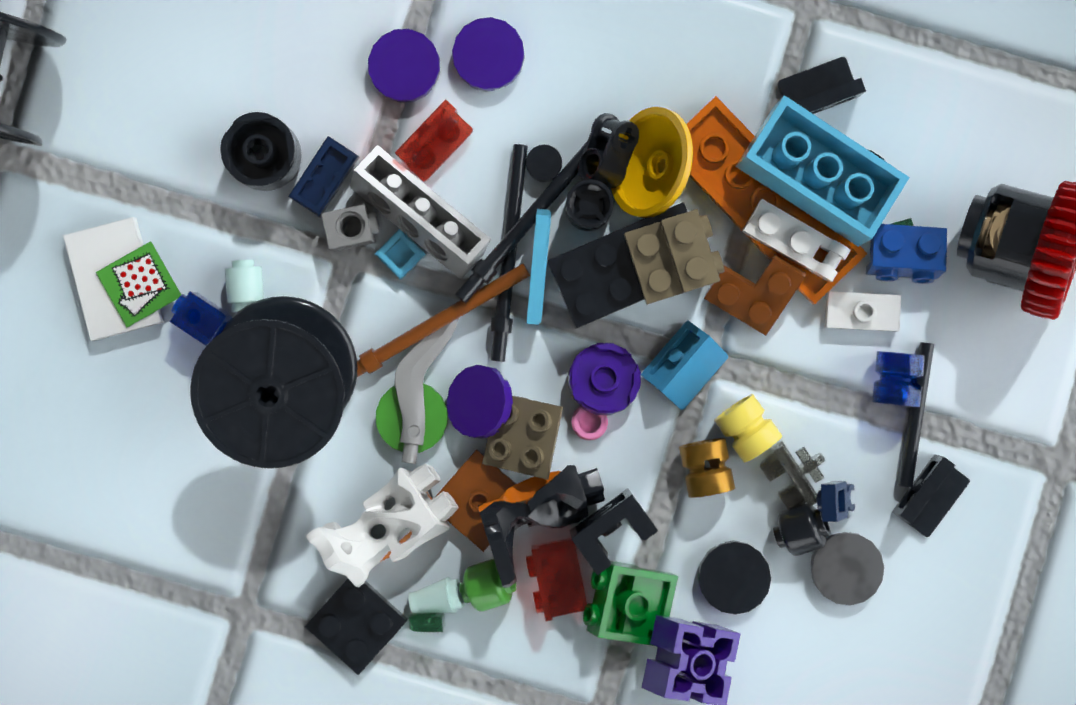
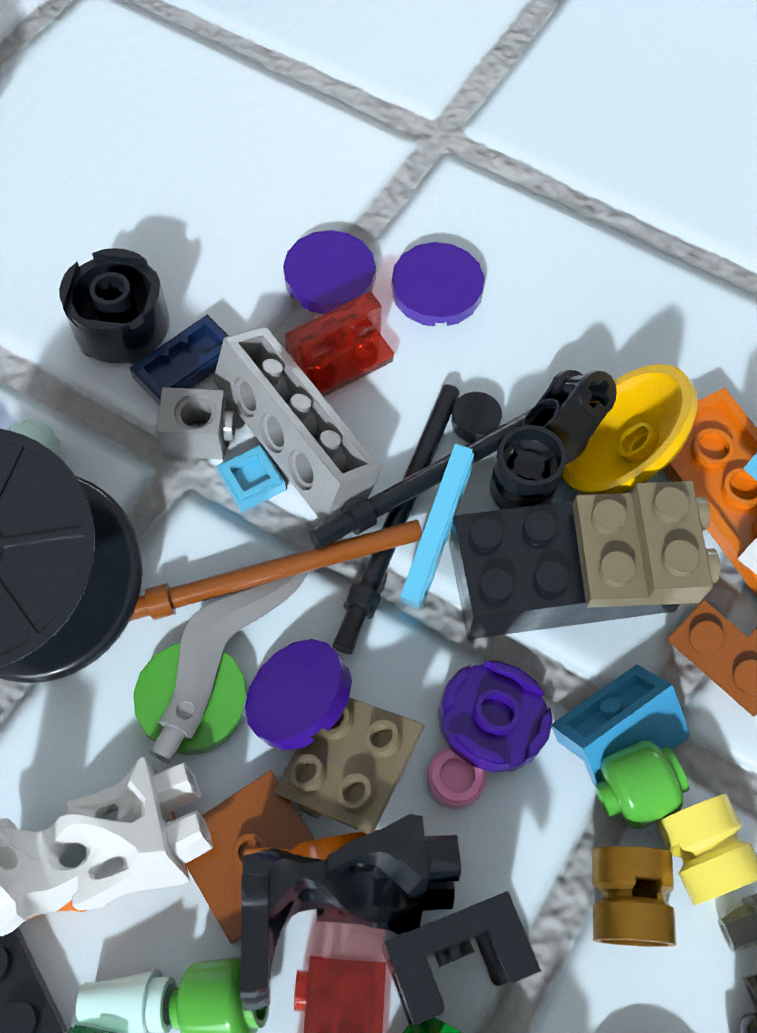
camera: 10 degrees right, 25 degrees down
(700, 401) = (641, 784): none -> bright green head

